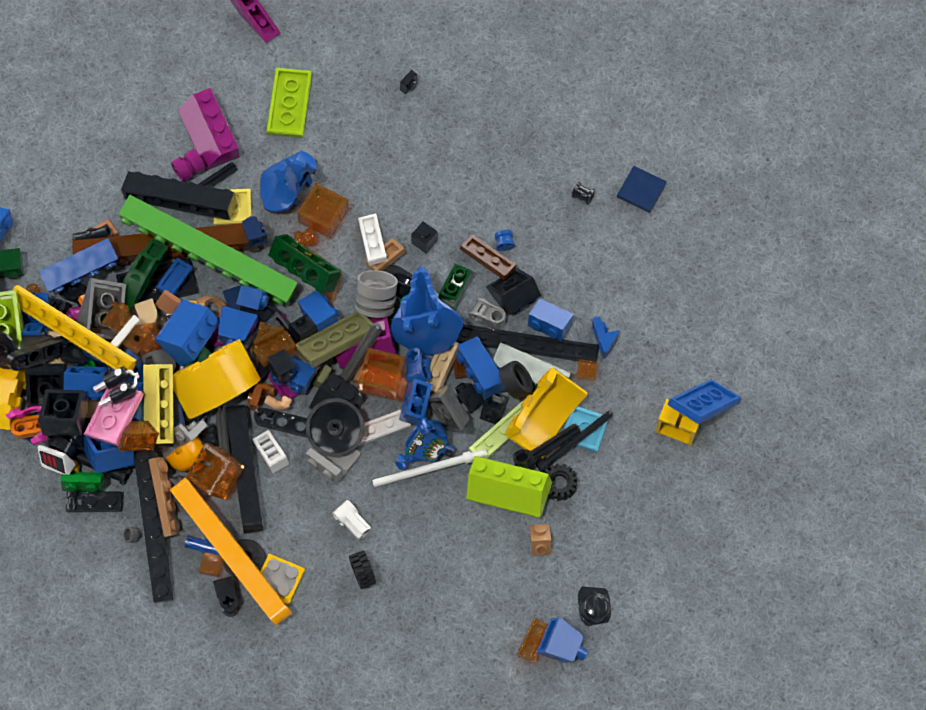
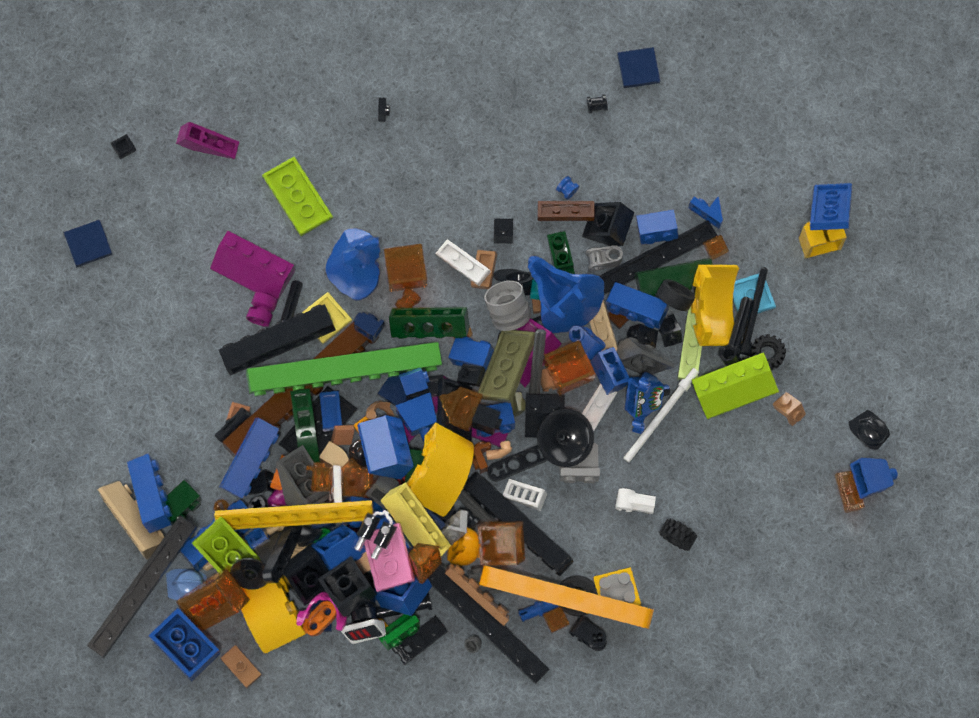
camera: 40 degrees left, 5 degrees up
(103, 29) = (87, 243): none -> dark blue tile

